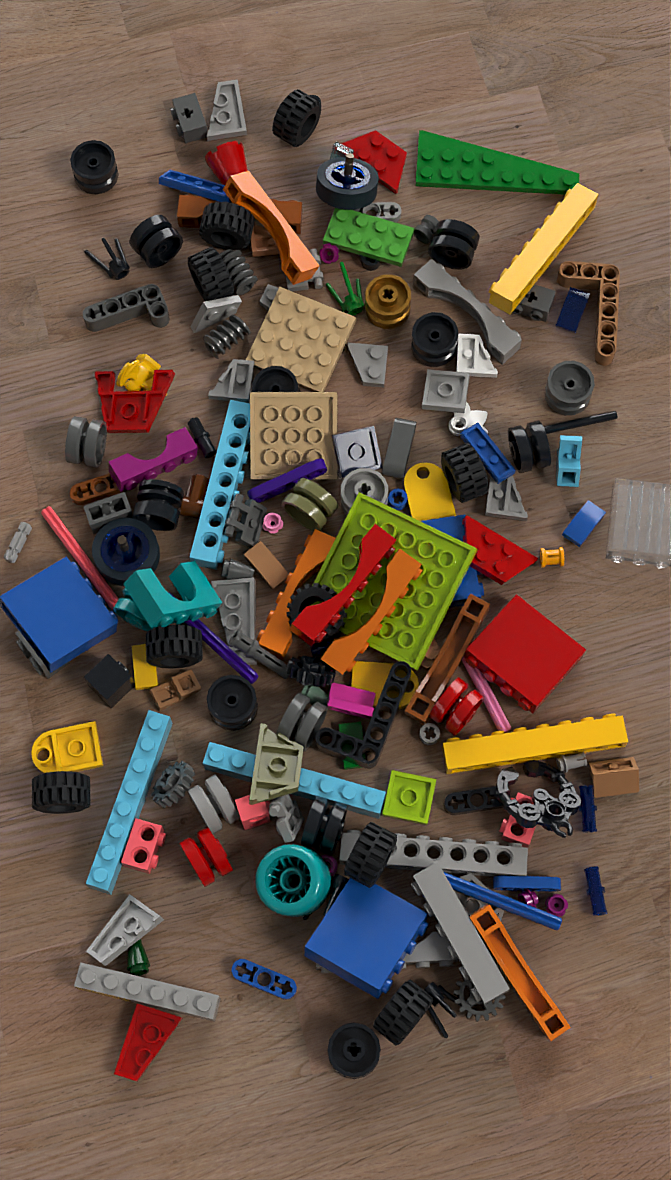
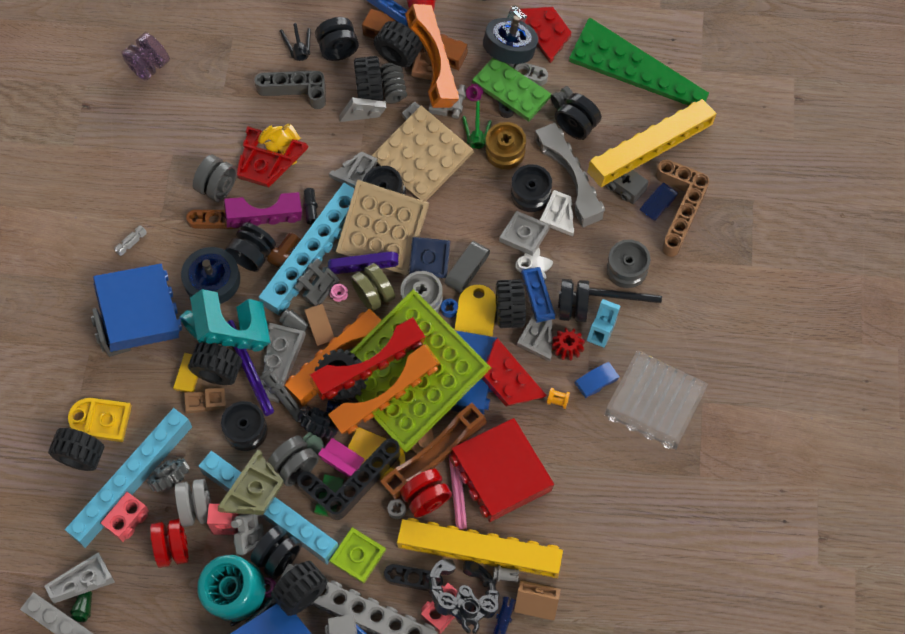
camera: 20 degrees right, 5 degrees down
(80, 556) = (173, 266): coral axle -> none
(107, 510) = (209, 237): dark grey brick -> none
(110, 680) = (154, 374): black head -> none
(225, 334) = (363, 130): dark grey piece -> none
(370, 363) = (472, 190): light grey wing -> none
(537, 502) = (574, 340): none -> red gear

